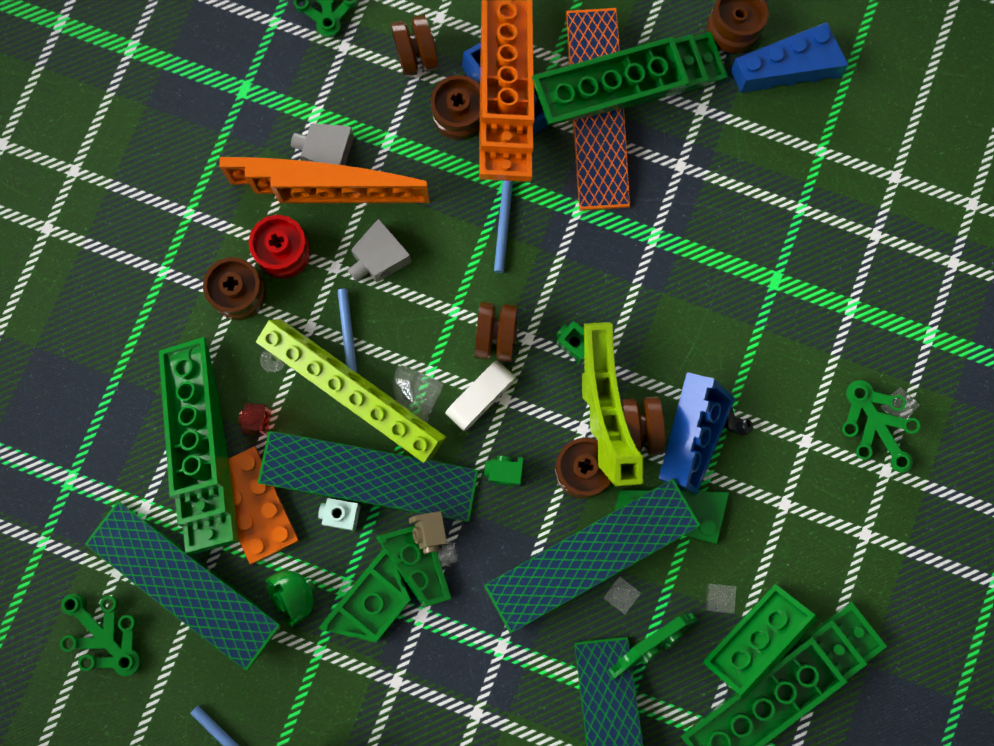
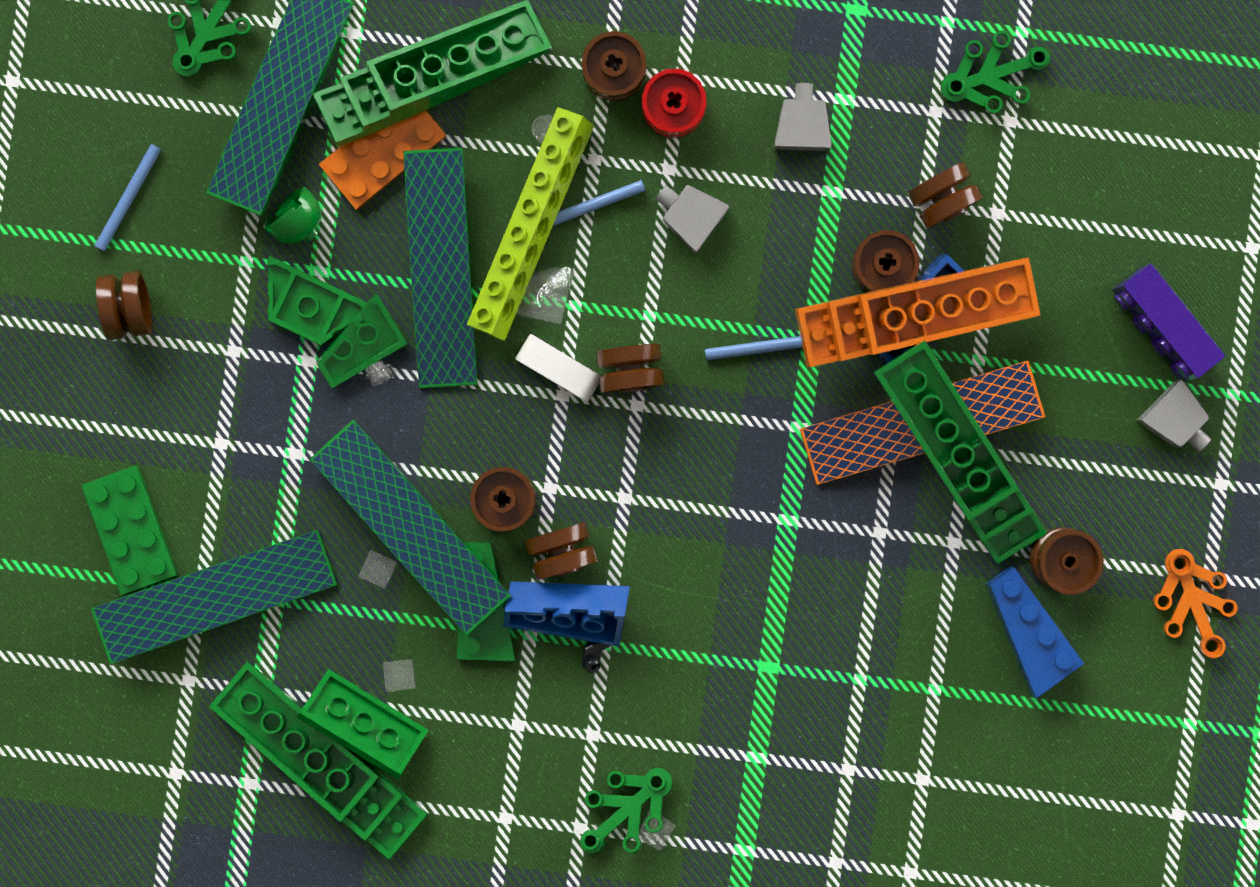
camera: 75 degrees right, 10 degrees up
(255, 419) = (474, 127): clear red brick -> none
(322, 182) = (756, 128): orange slope -> none
(349, 515) = (393, 258): light aqua brick -> none
(429, 531) = (394, 347): dark tan brick -> none
(504, 471) = (481, 413): green brick -> none
(568, 333) = (634, 466): green brick -> none
(616, 449) = (555, 511): lime arch -> none
(649, 647) = (325, 607): green wing -> none

